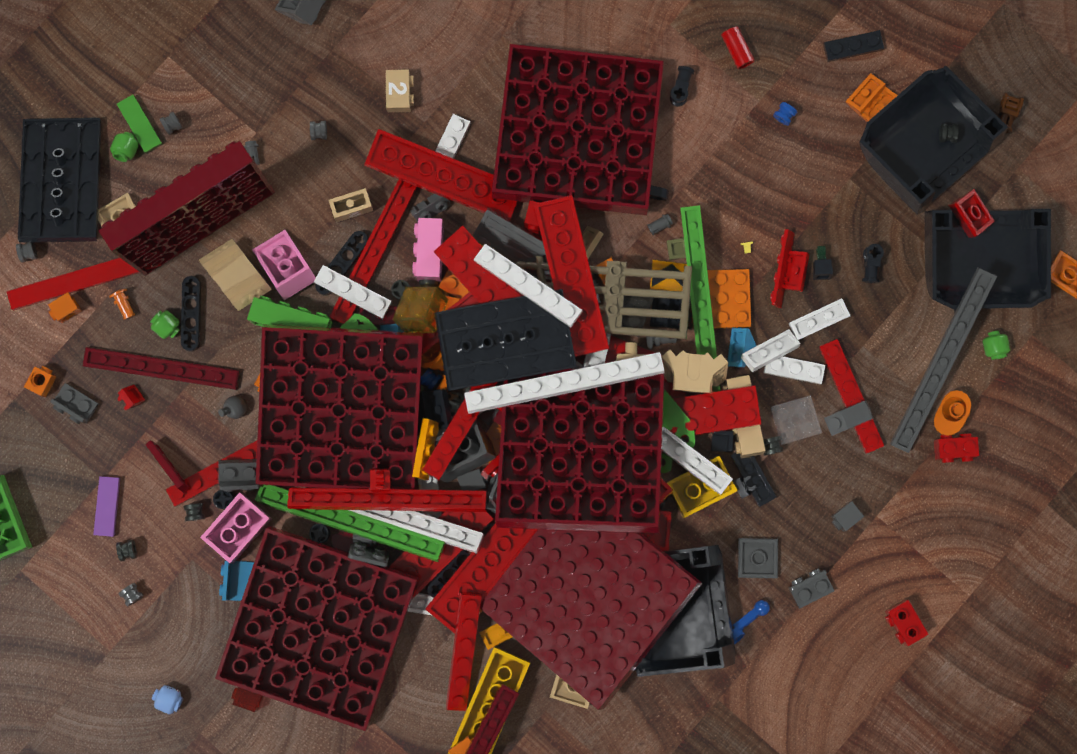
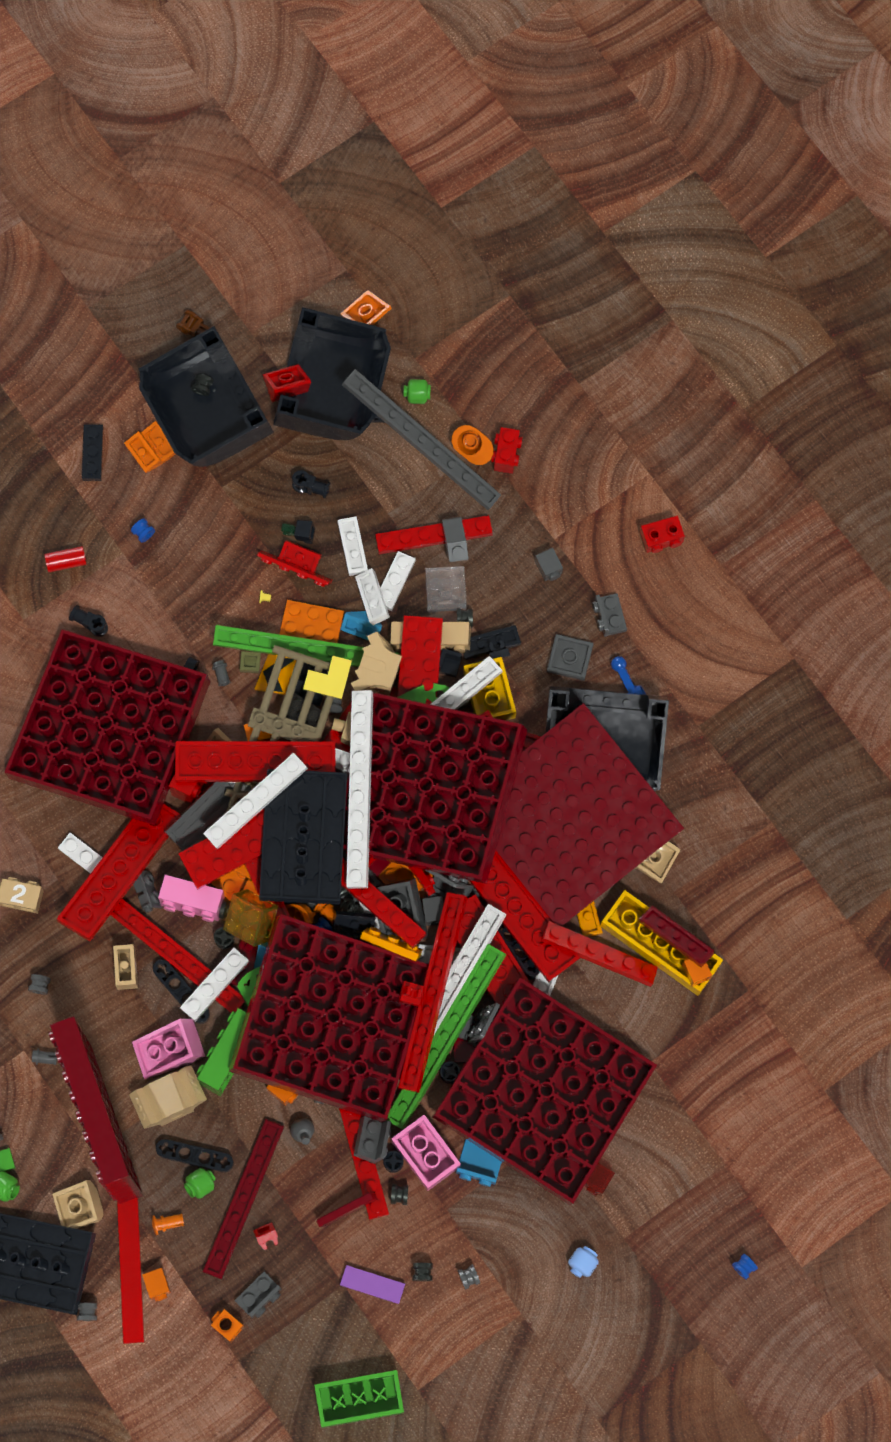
camera: 80 degrees left, 10 degrees down
(666, 332) = (331, 684): none -> light yellow tile

